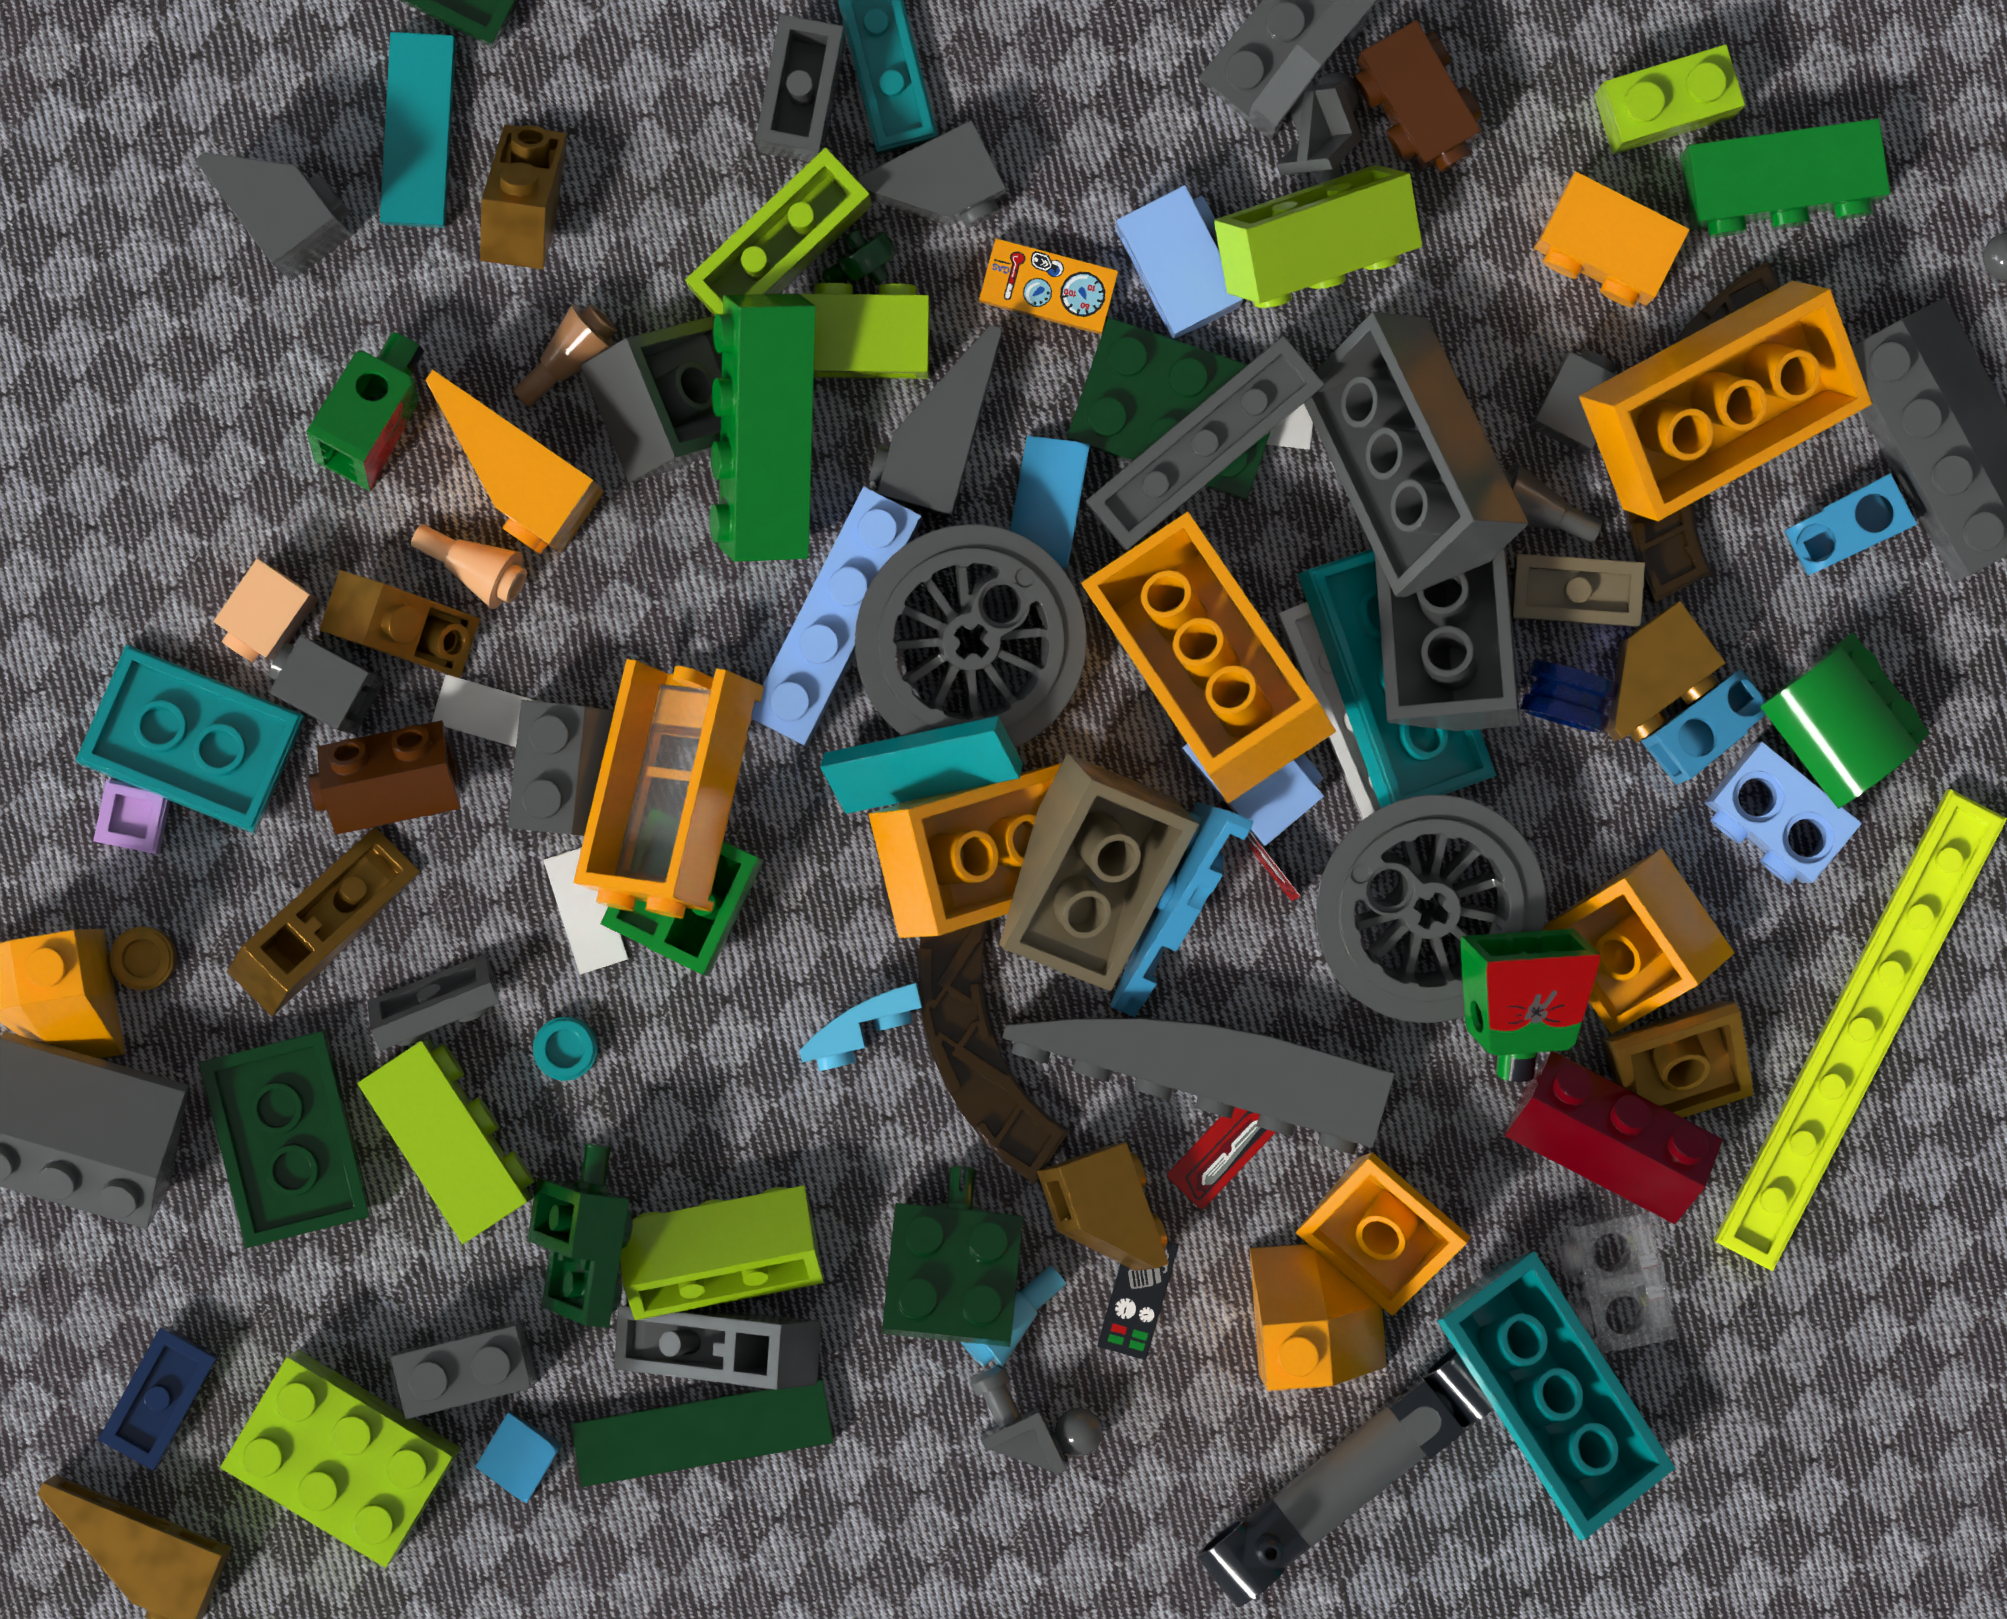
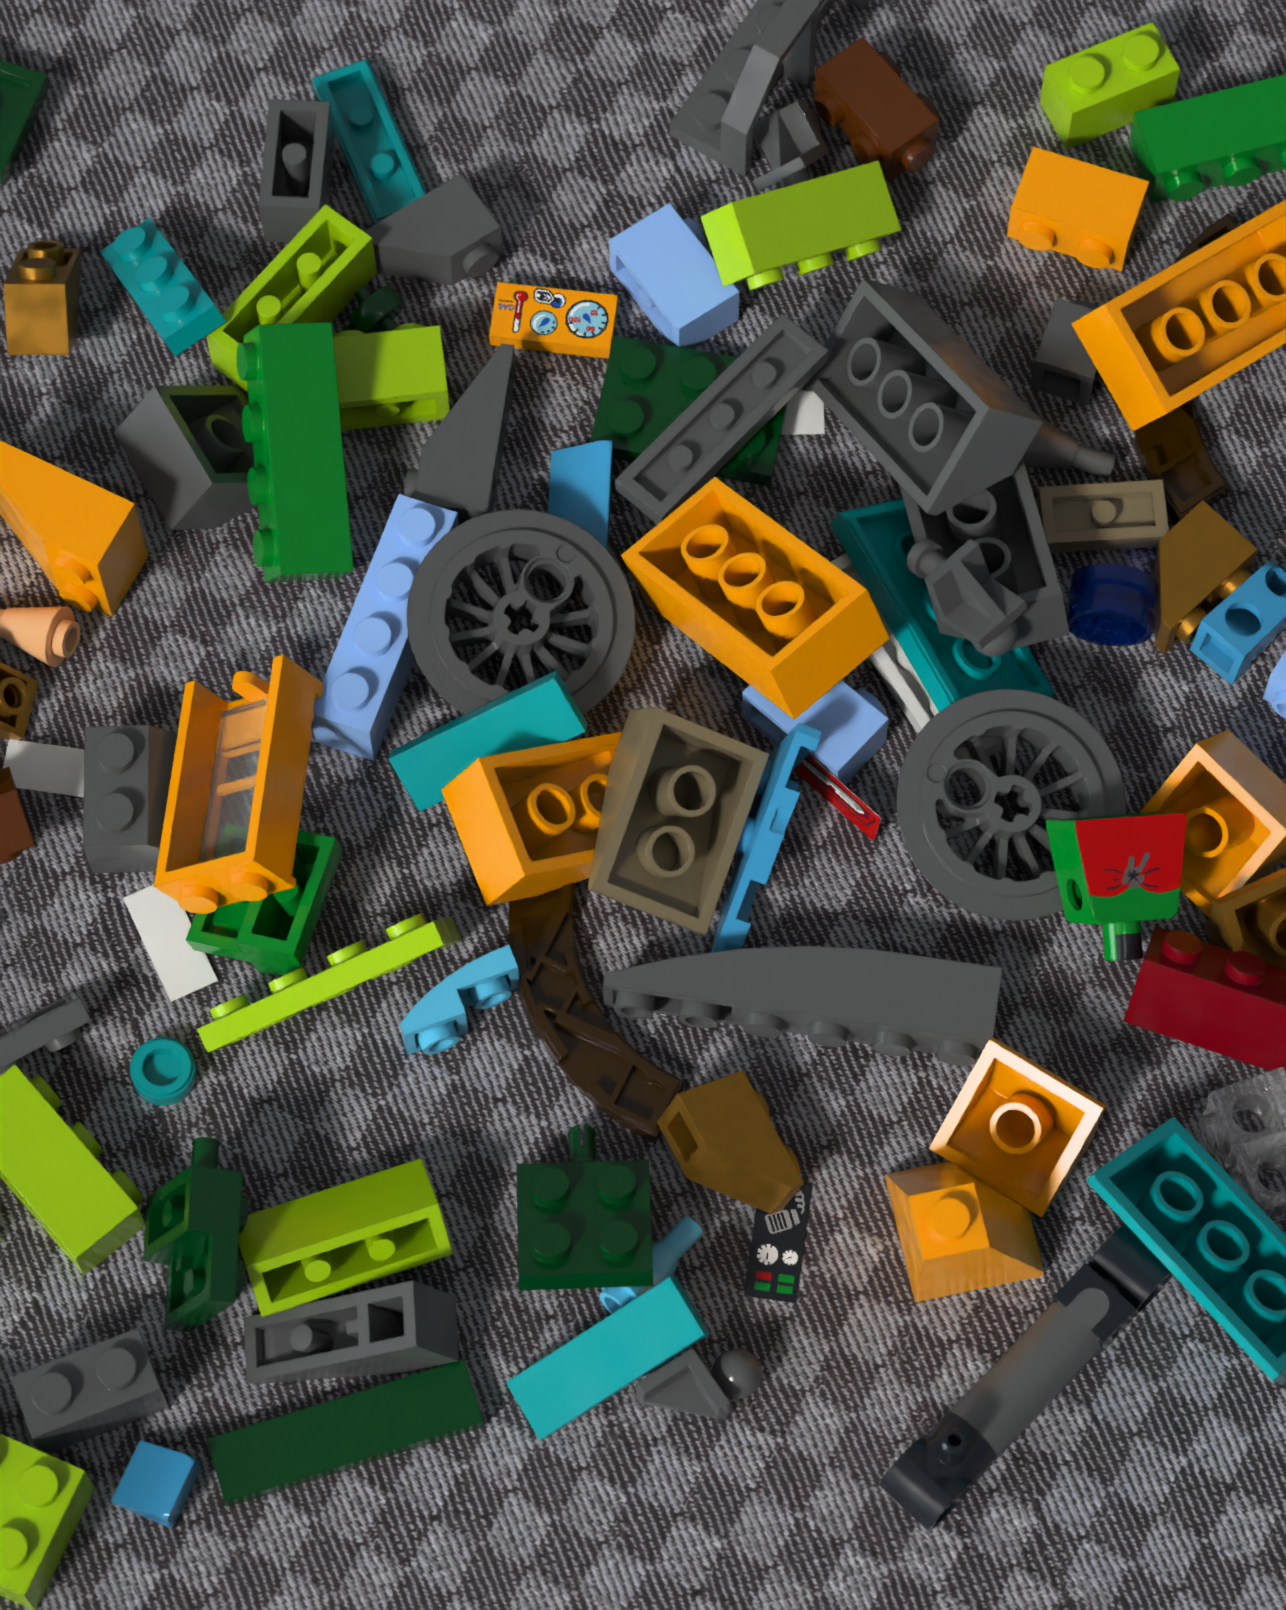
camera: 10 degrees left, 20 degrees down
(576, 341) = (98, 426): medium nougat cone -> none
(646, 209) = (162, 286): none -> teal plate
(754, 990) = (348, 969): none -> lime wing
(958, 1406) = (607, 1357): none -> teal tile
(1218, 1156) = (840, 1090): sticker -> none
(1421, 697) = (968, 595): none -> dark grey piece

